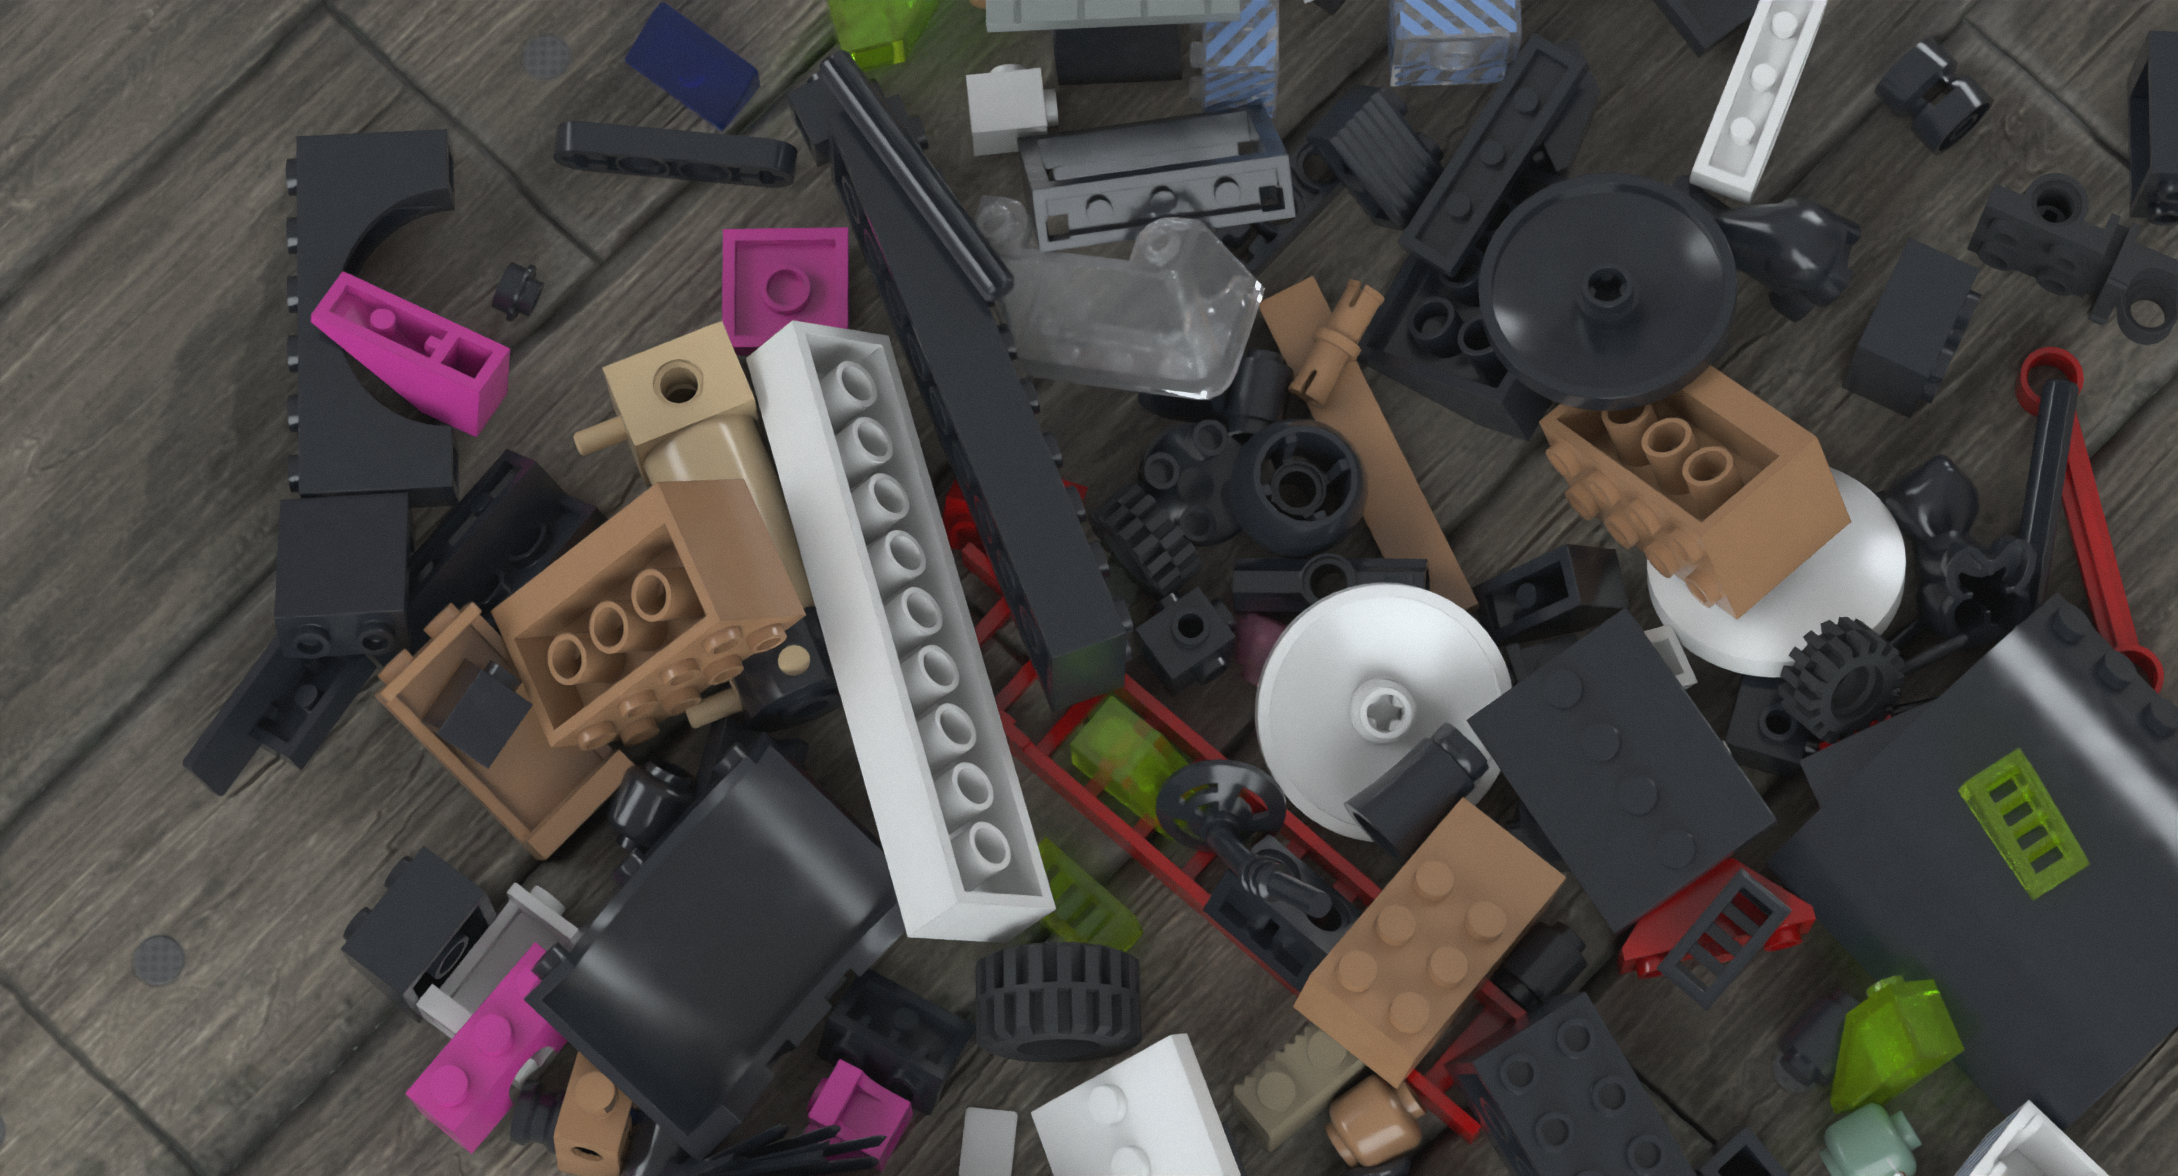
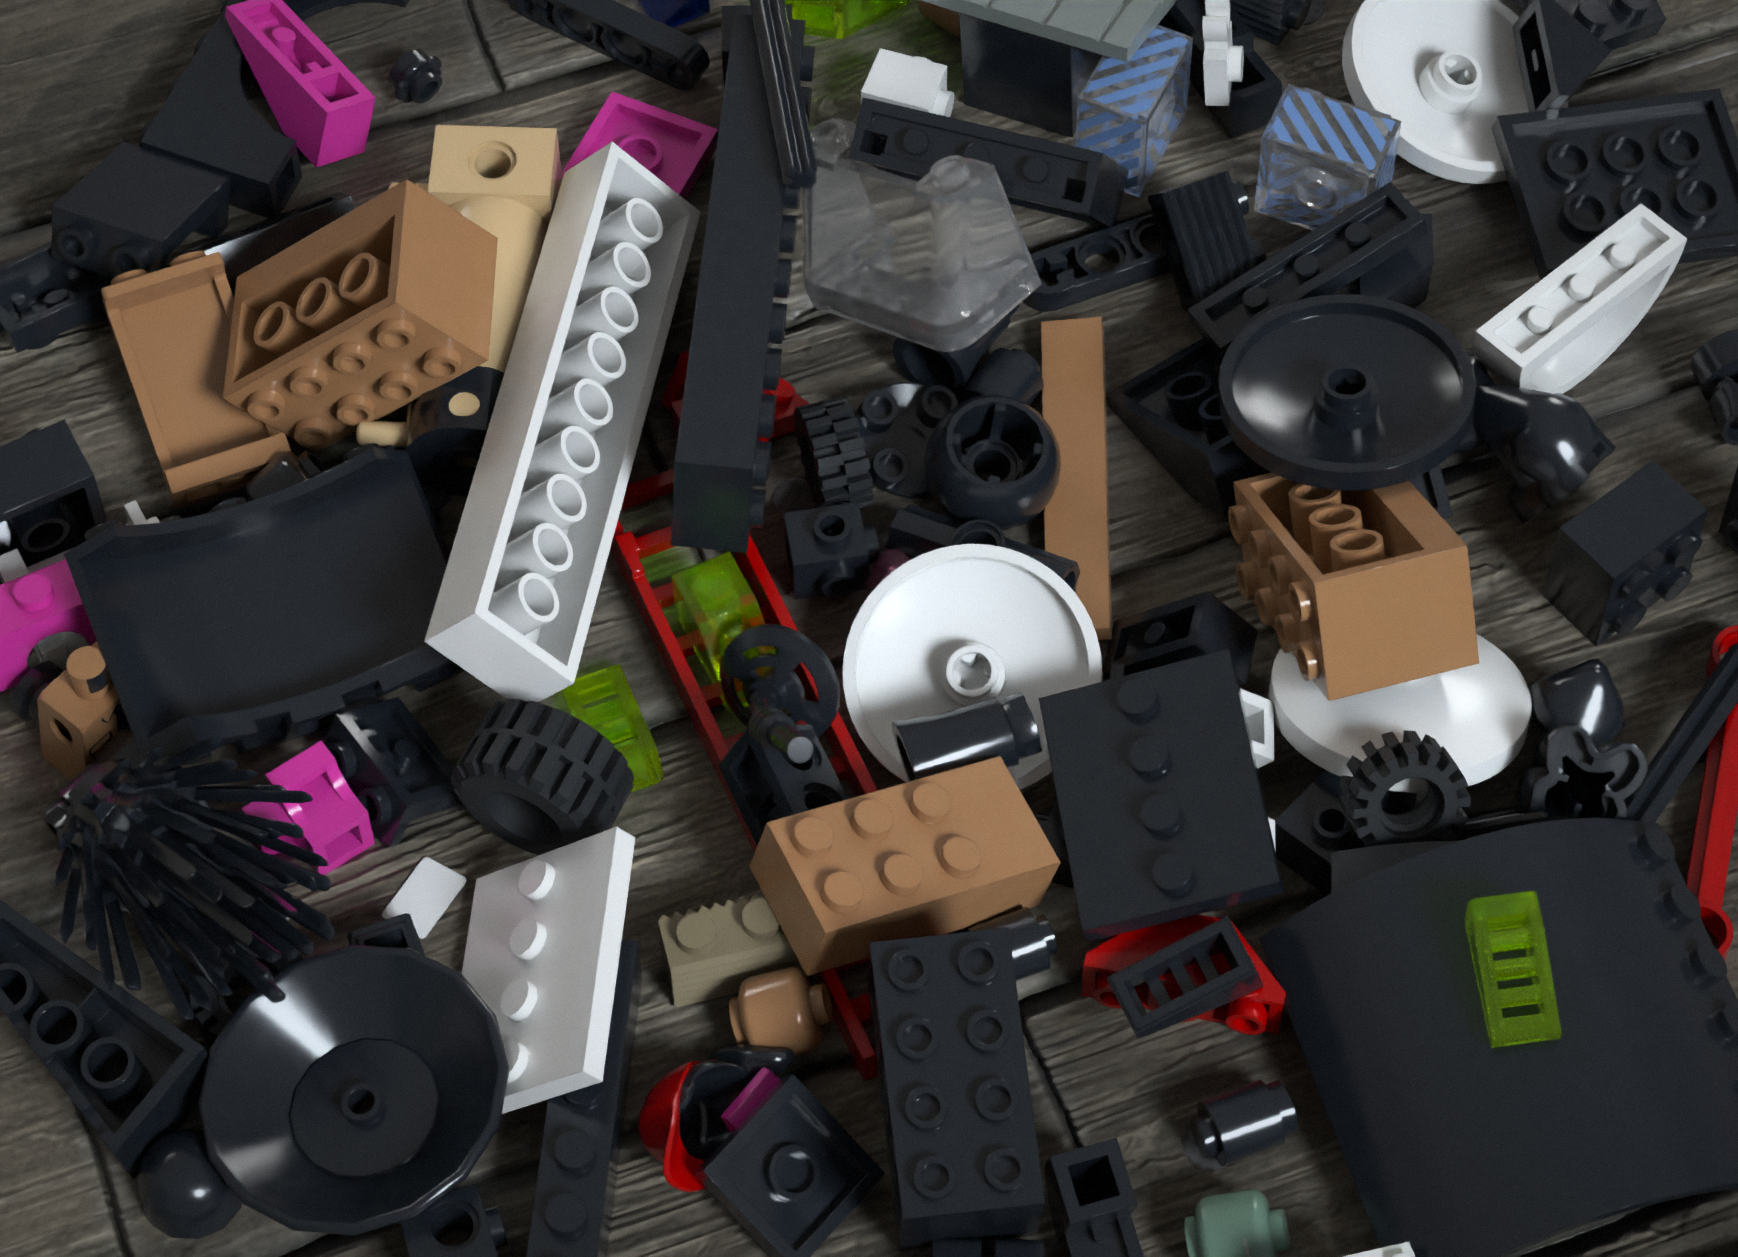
camera: 25 degrees right, 15 degrees down
(478, 710) = (179, 344): black brick -> none
(1336, 343) = (1090, 370): medium nougat pin -> none
(1892, 1043) = (1300, 1139): clear neon green slope -> none

